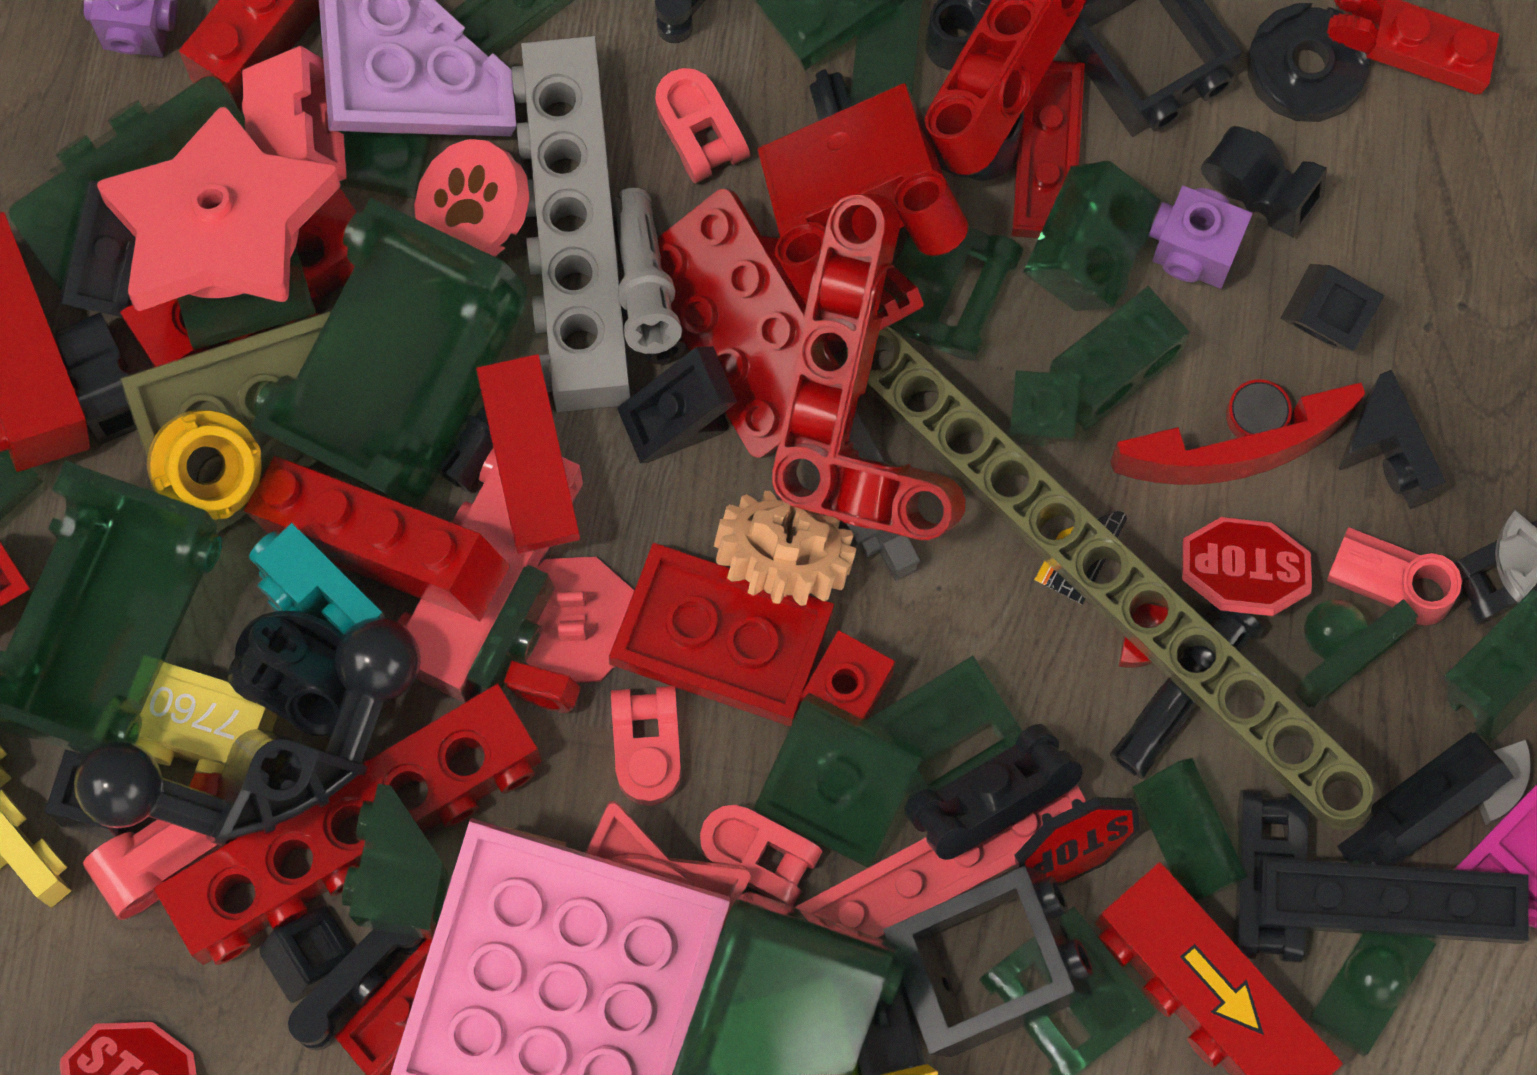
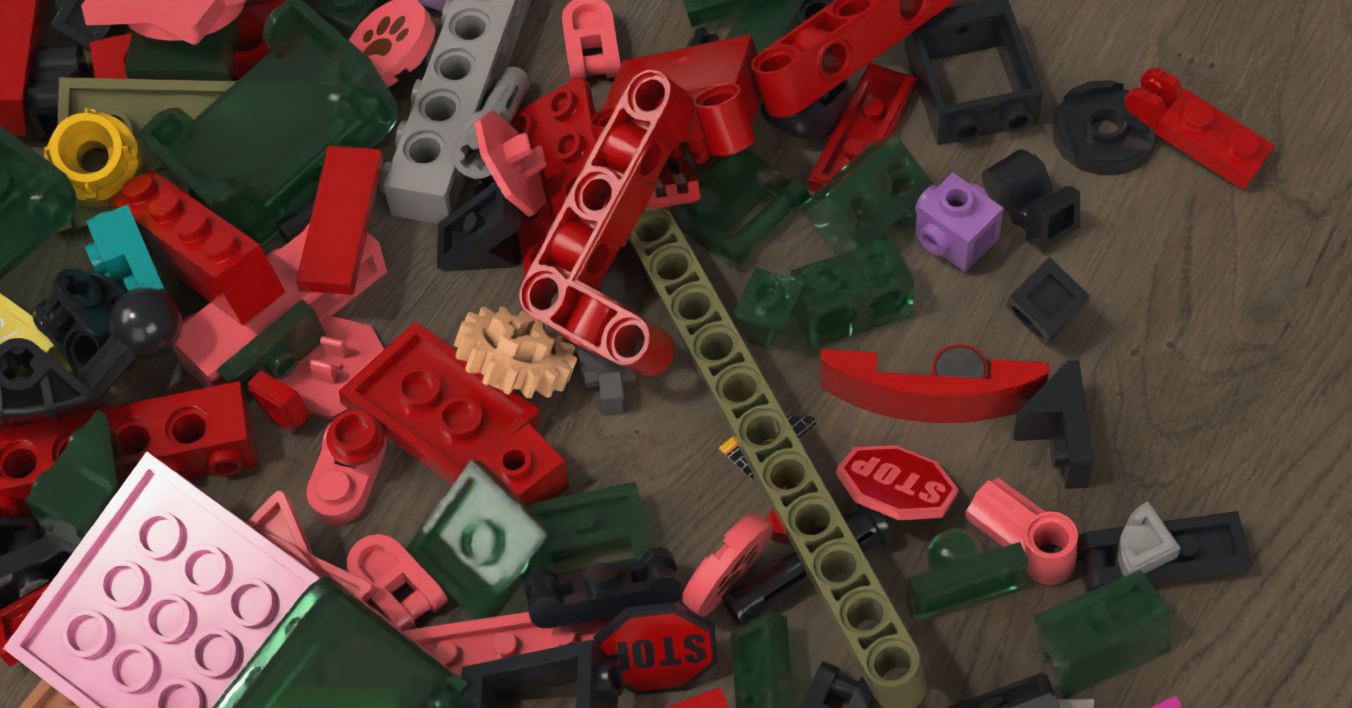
camera: 25 degrees right, 15 degrees down
(654, 708) = (355, 438): none -> red plate
(702, 327) = (512, 162): none -> coral piece
(1118, 722) = (728, 566): none -> coral tile

